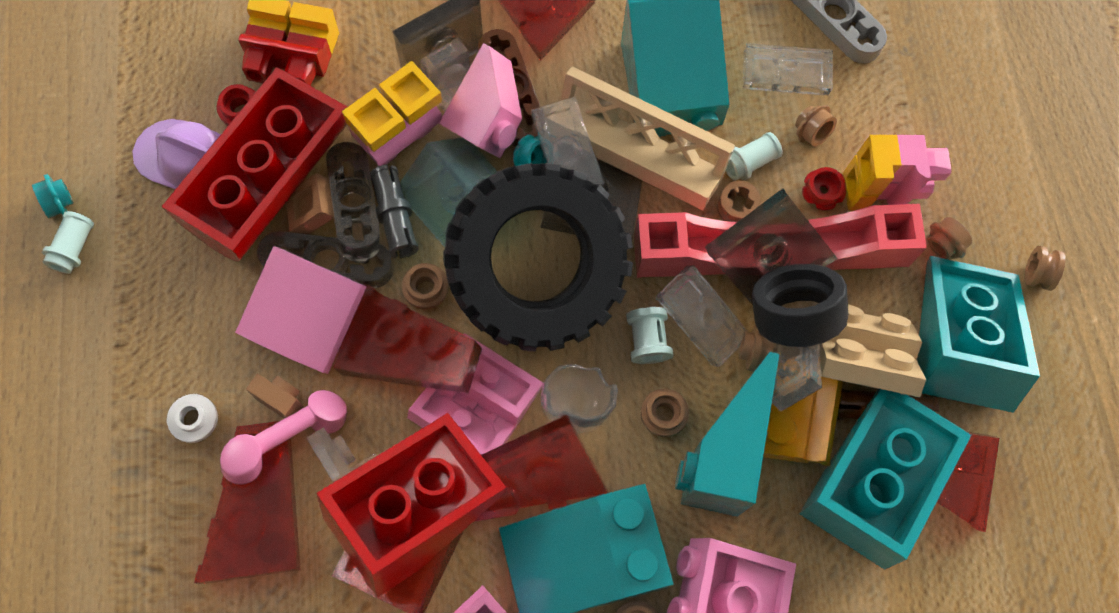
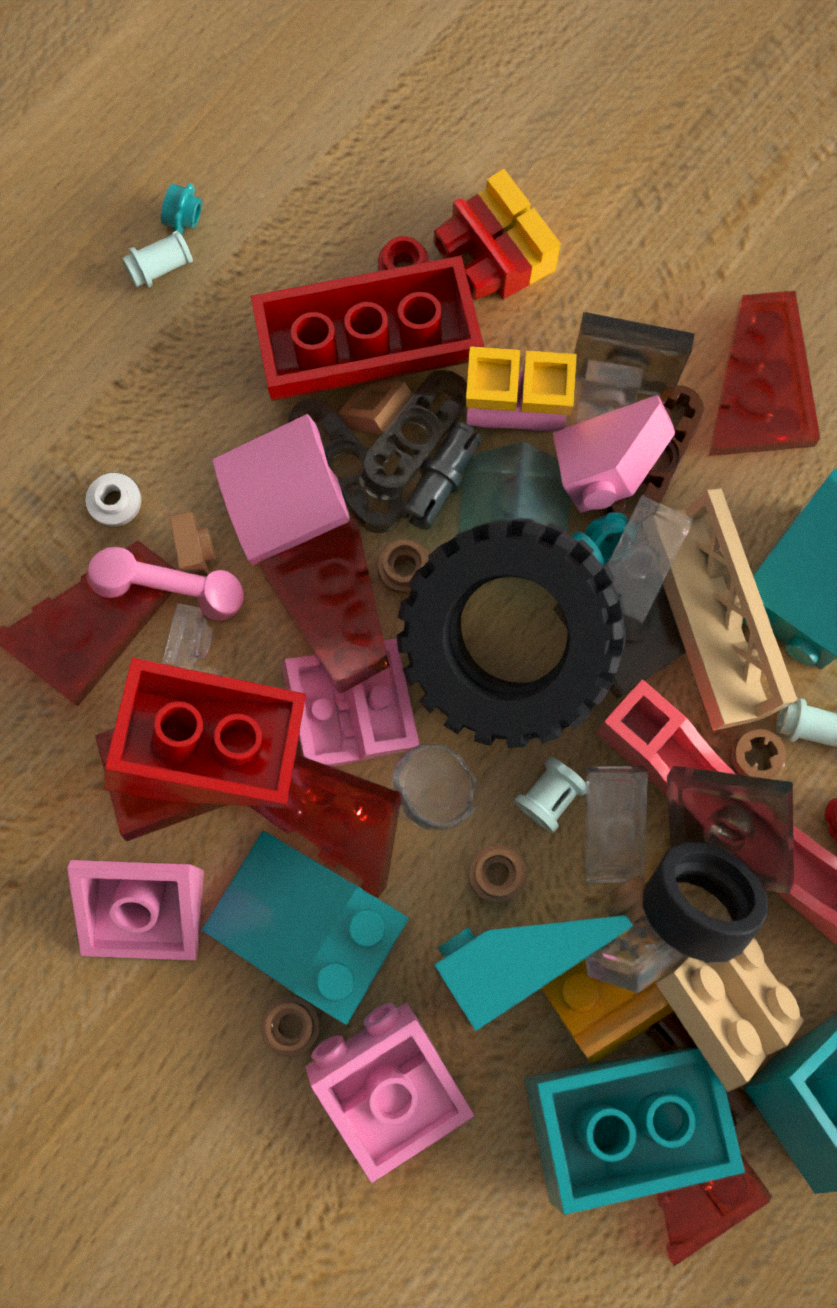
camera: 50 degrees right, 5 degrees up
(171, 150) = (313, 251): lavender piece -> none

